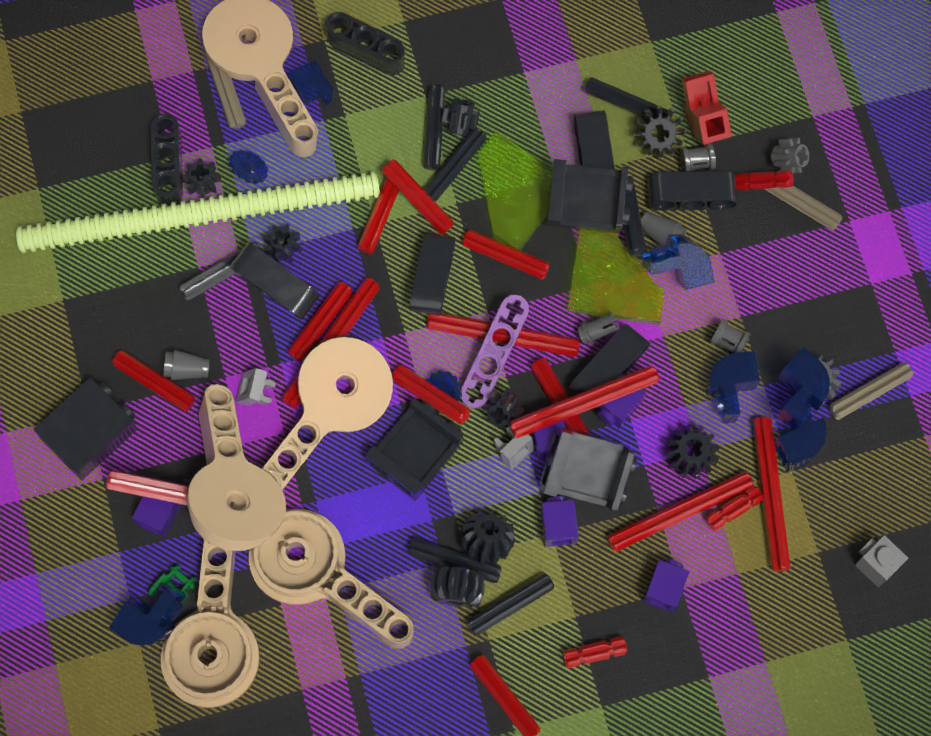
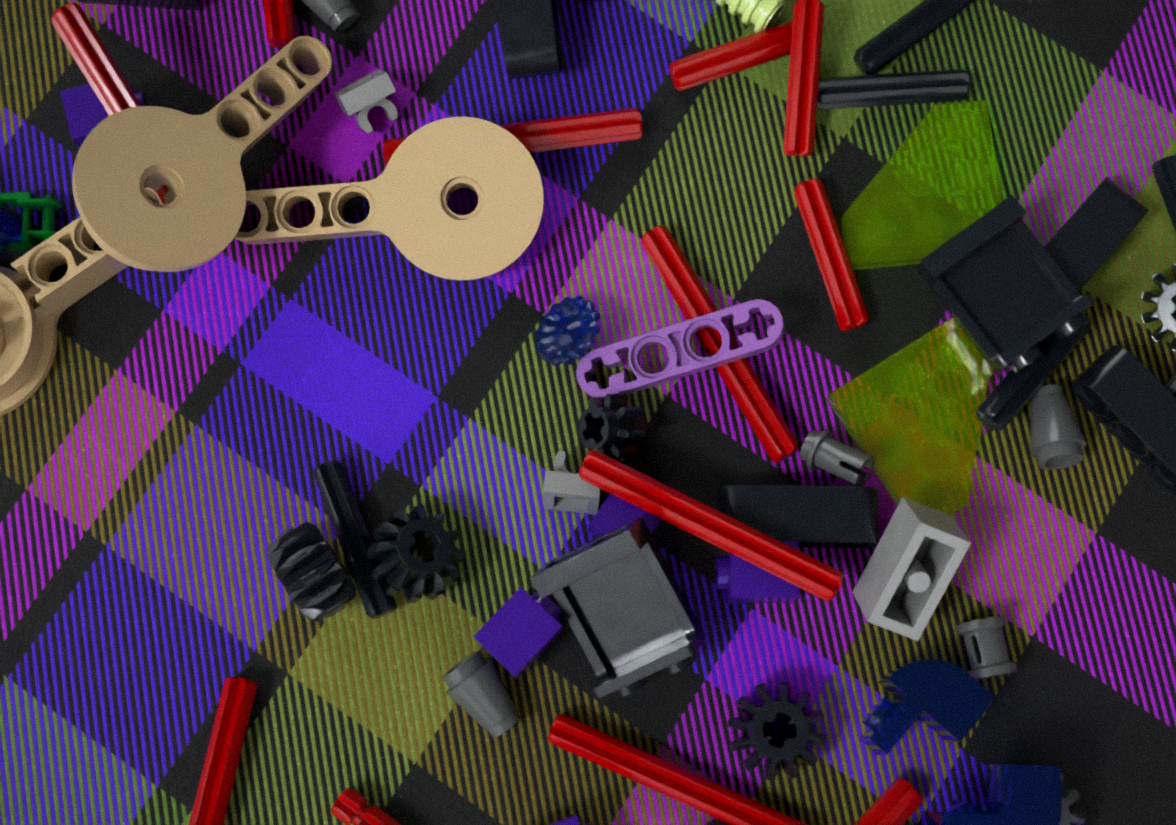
camera: 50 degrees right, 5 degrees up
(319, 574) = (194, 383): tan beam -> none
(320, 321) = (532, 102): red axle -> none
(415, 449) = (459, 363): black panel -> none
(431, 394) = (548, 319): red axle -> none
(432, 274) = (714, 183): black beam -> none
(460, 116) = (962, 38): black gear -> none
(510, 604) = (355, 662): black axle -> none
(555, 392) = (696, 483): red axle -> none
(569, 561) = (481, 693): none -> dark grey cone
(672, 338) = (910, 568): none -> light grey brick
(688, 259) = (1042, 487): clear blue brick -> none

